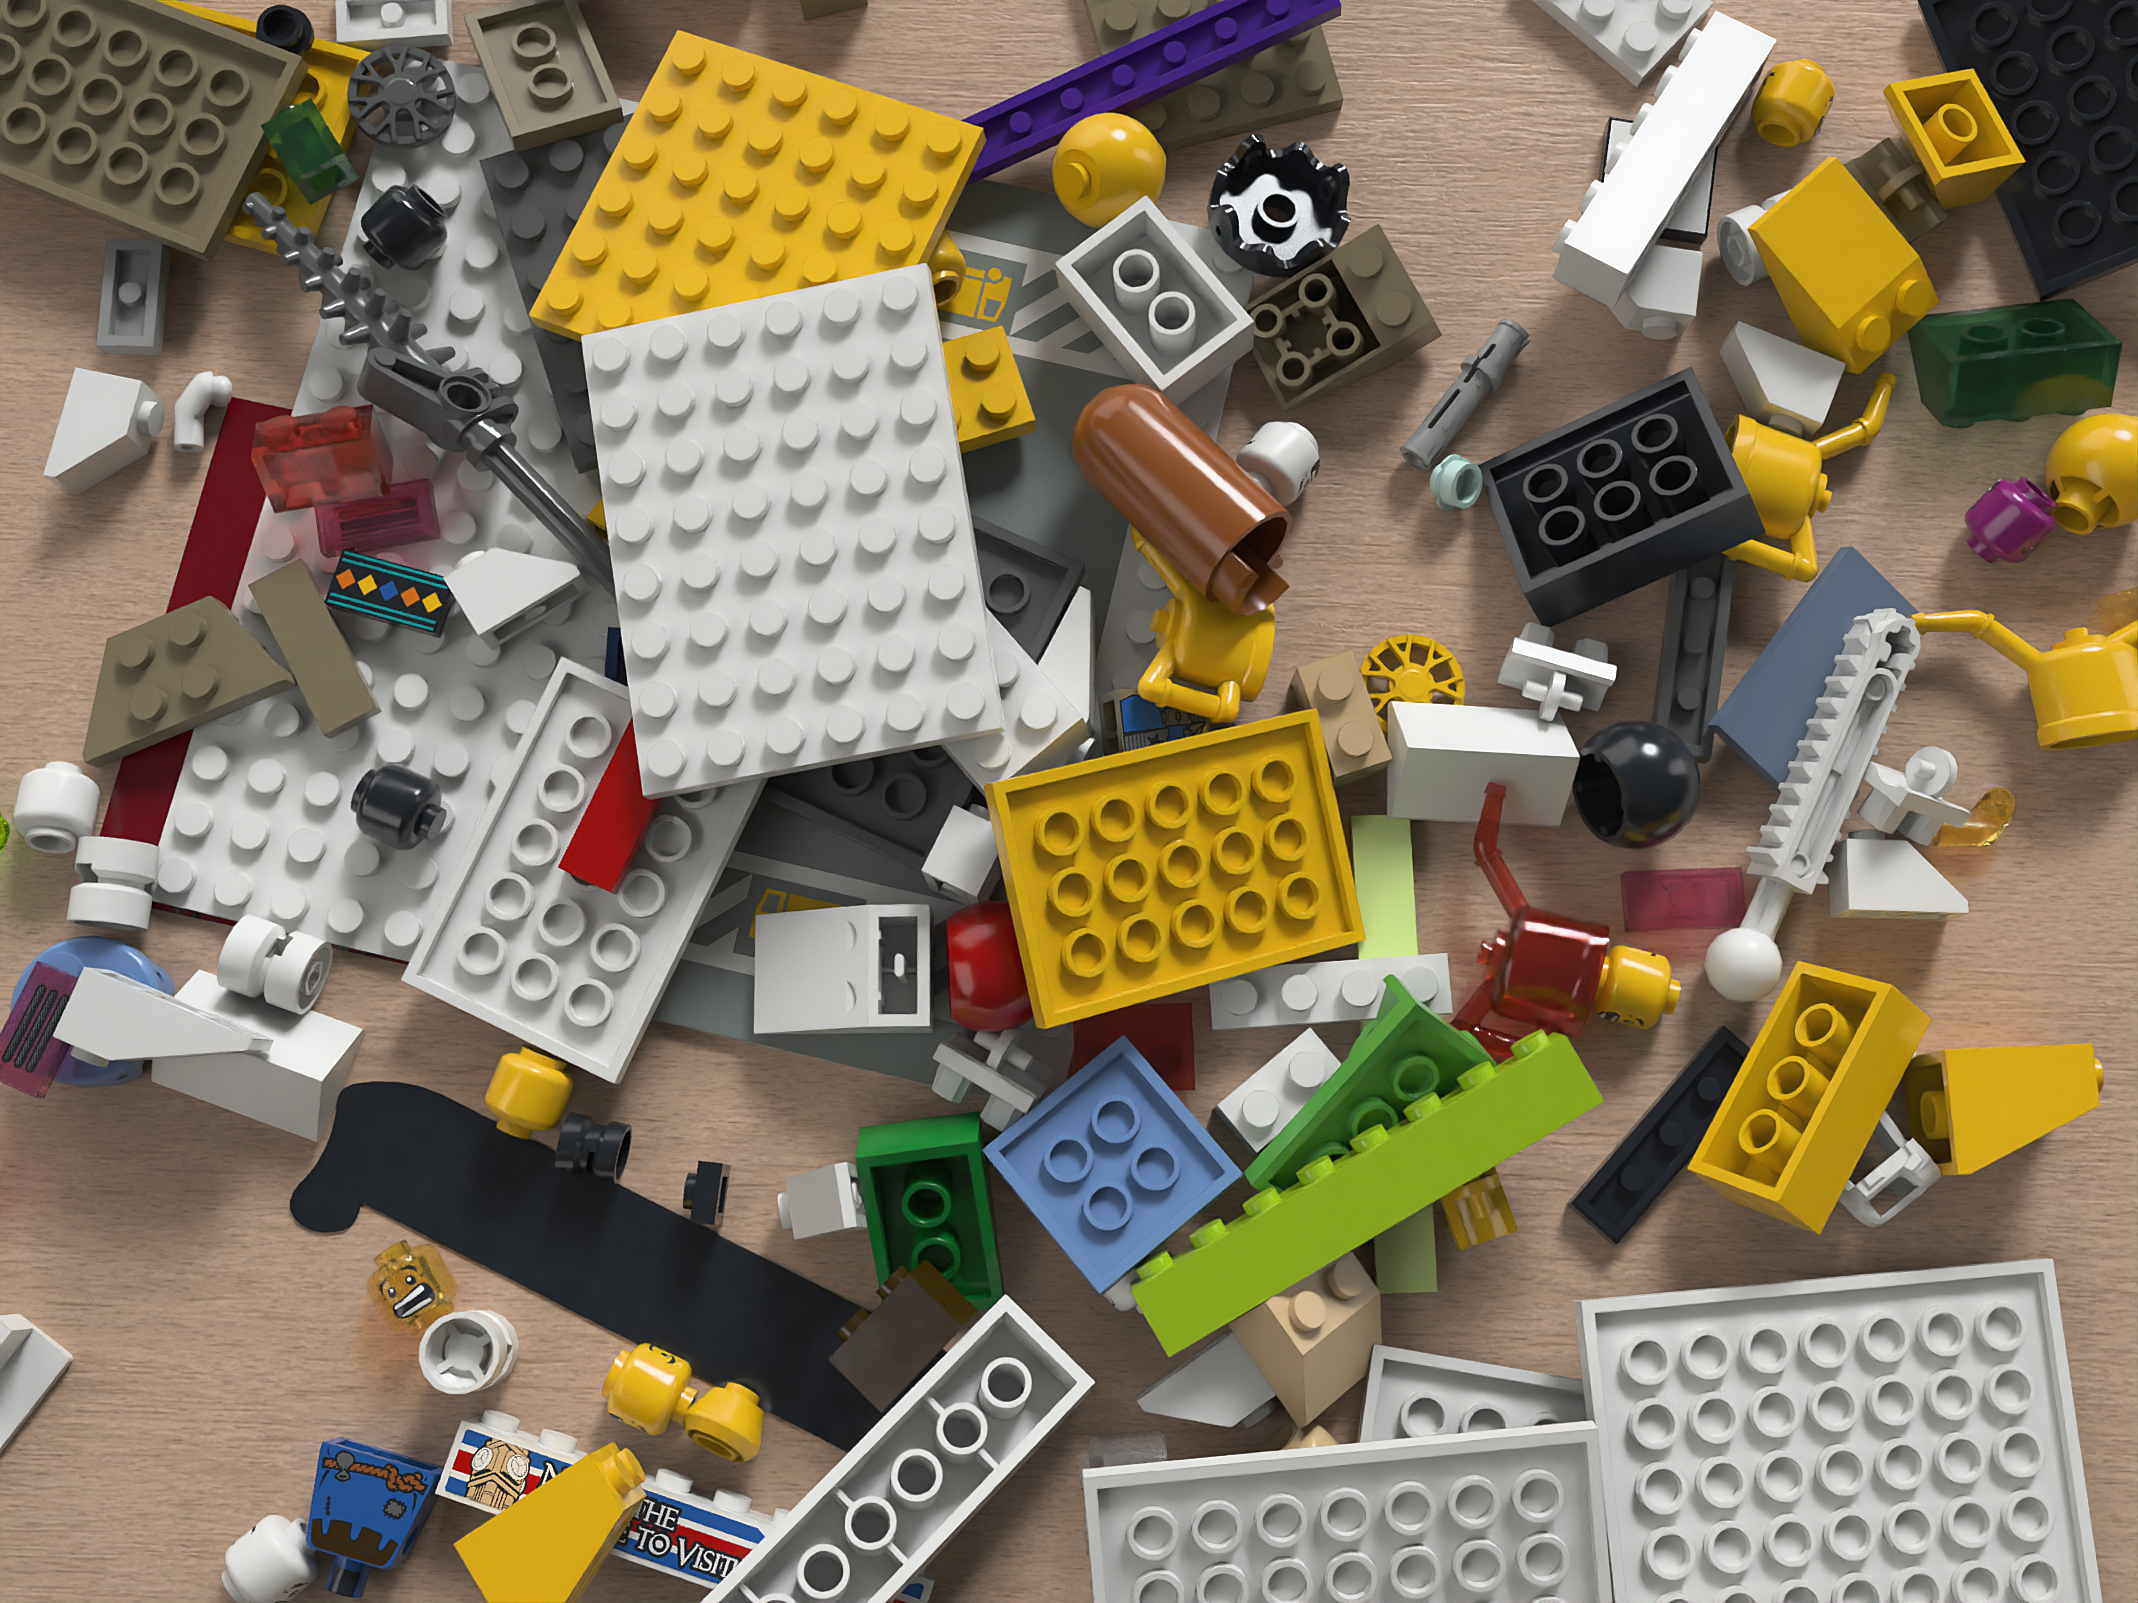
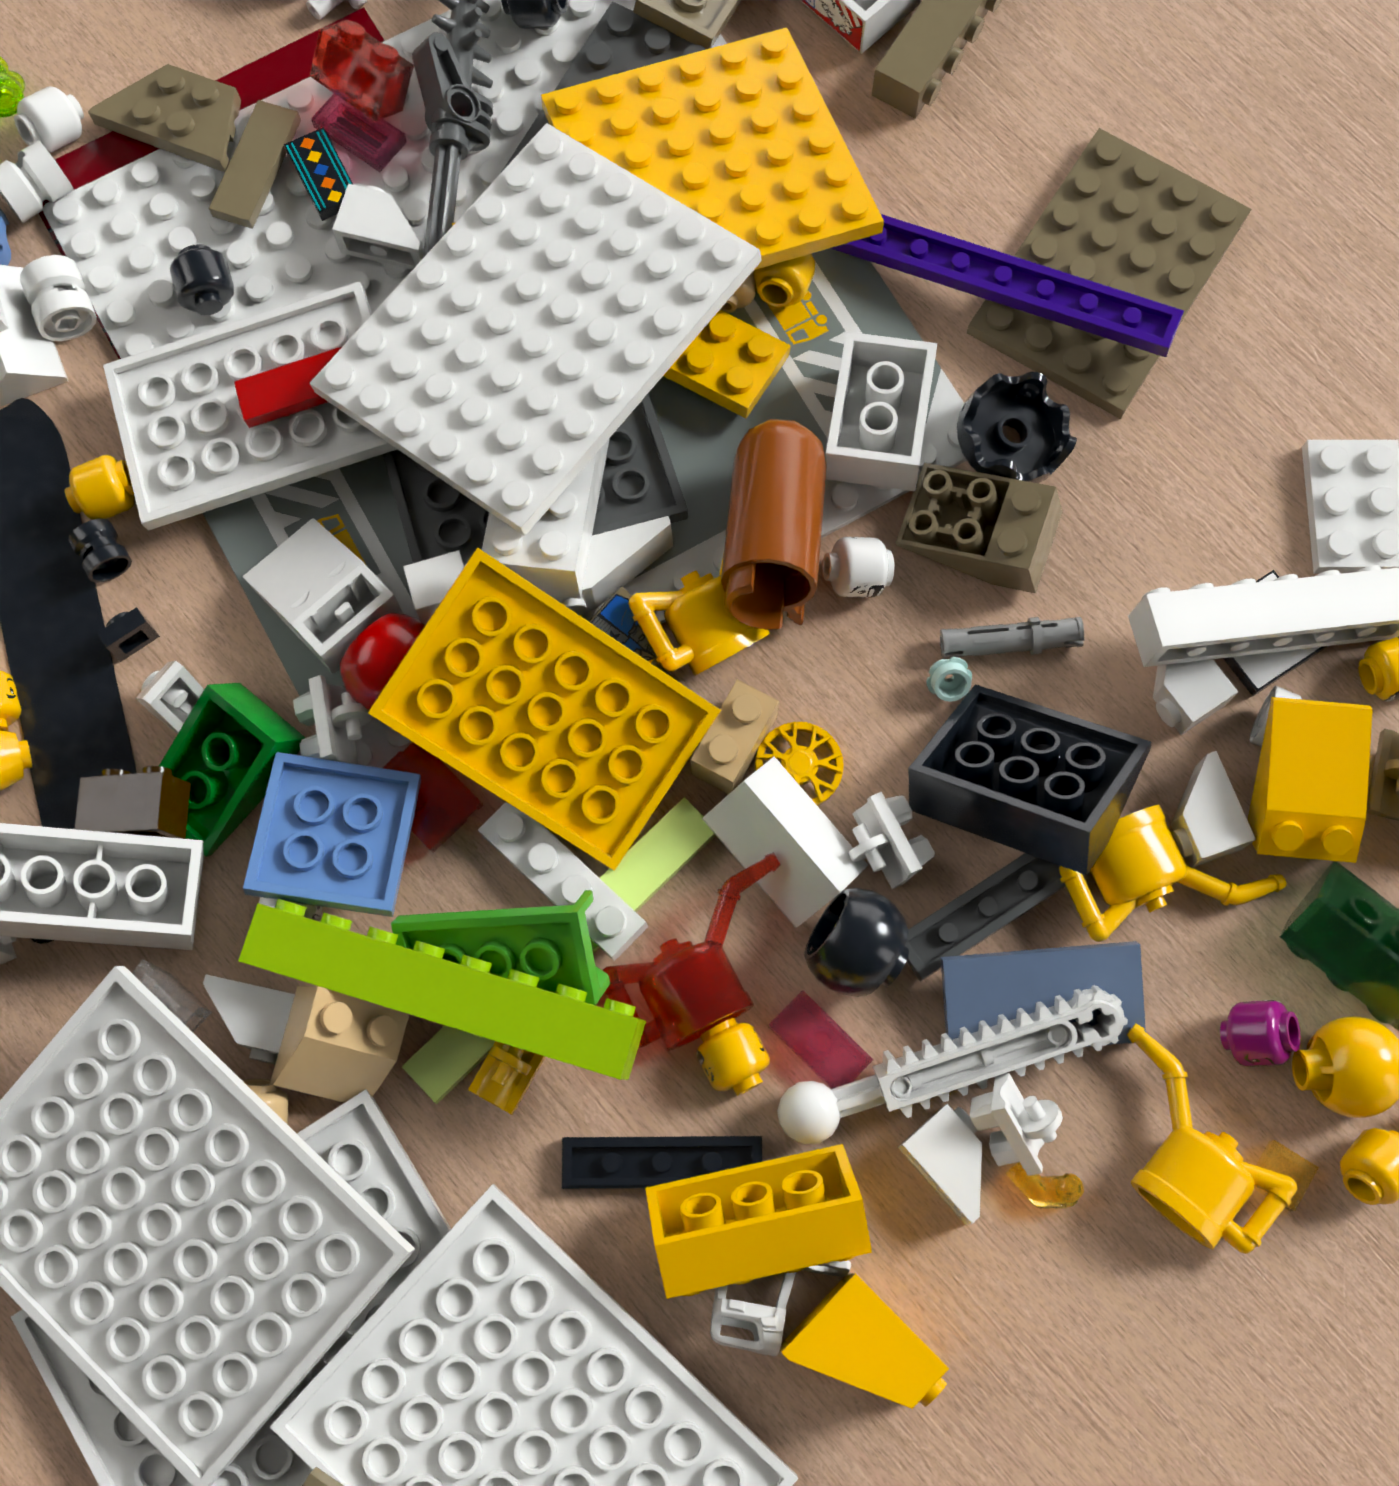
camera: 50 degrees right, 5 degrees down
(1107, 167) = (941, 311): yellow brick -> none
(1277, 1091) = (462, 890): white brick -> none

